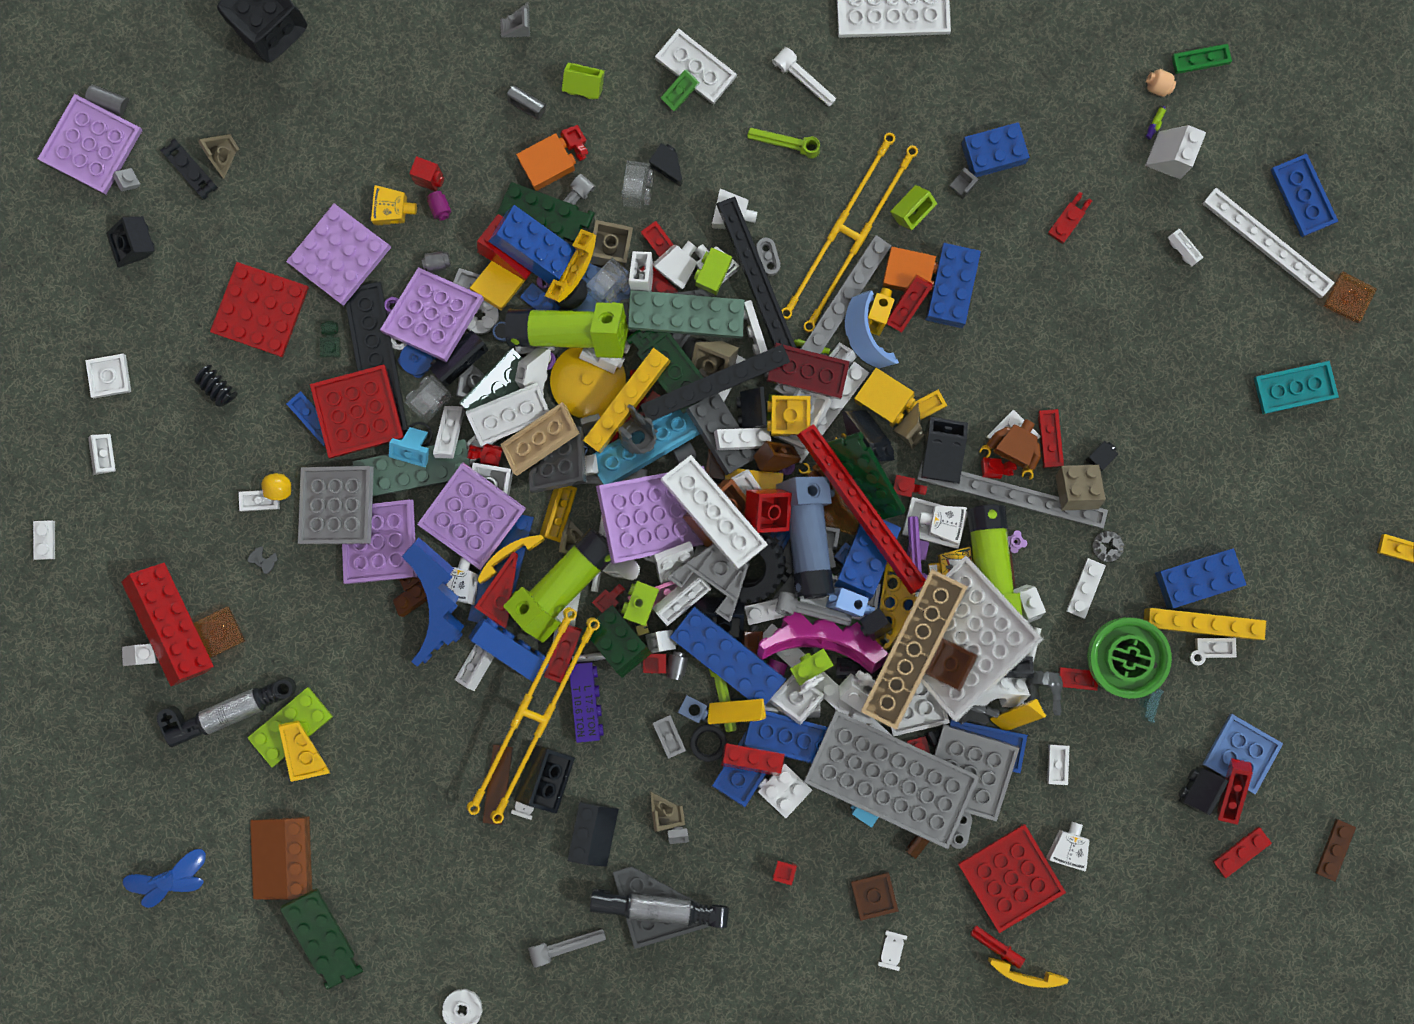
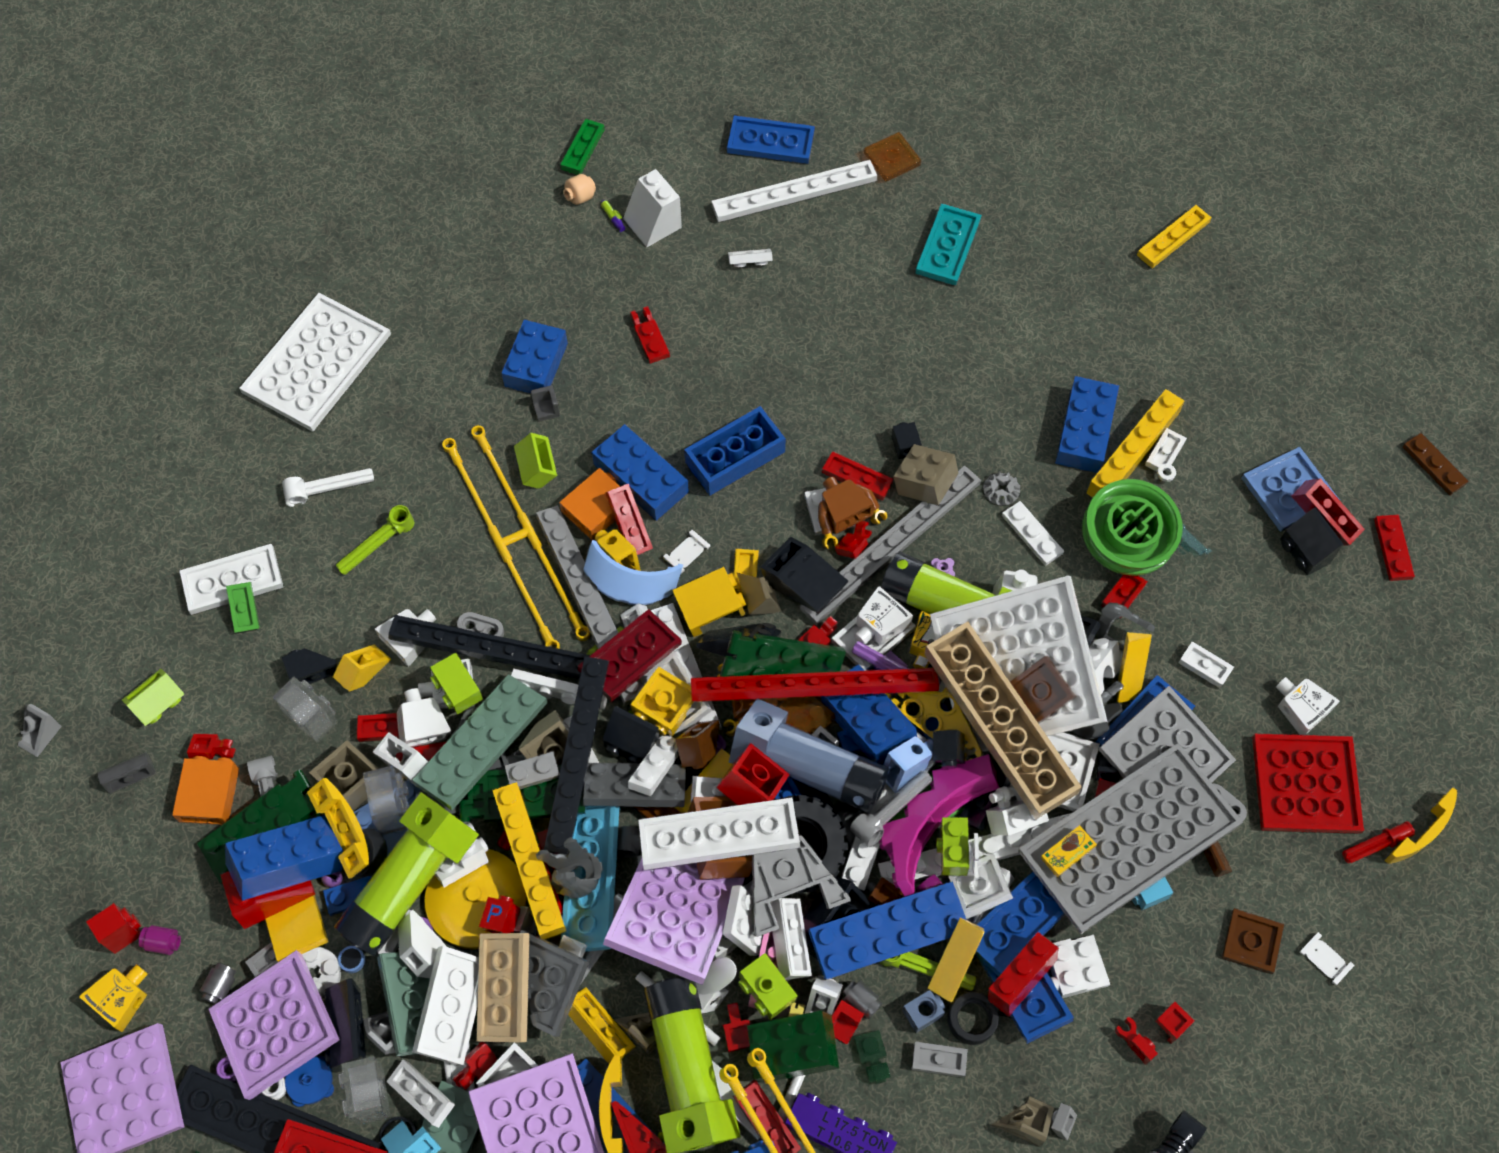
camera: 55 degrees left, 20 degrees down
(582, 406) = (499, 915): none -> red brick
(650, 689) = (871, 1049): none -> clear green plate
(686, 362) = (533, 770): none -> light grey plate
(690, 198) = (360, 667): none -> yellow slope
(757, 859) = (1141, 1046): none -> red plate
(853, 744) = (1068, 851): none -> yellow tile
(914, 357) = (686, 551): none -> white piece
(1012, 341) = (735, 450): none -> blue brick

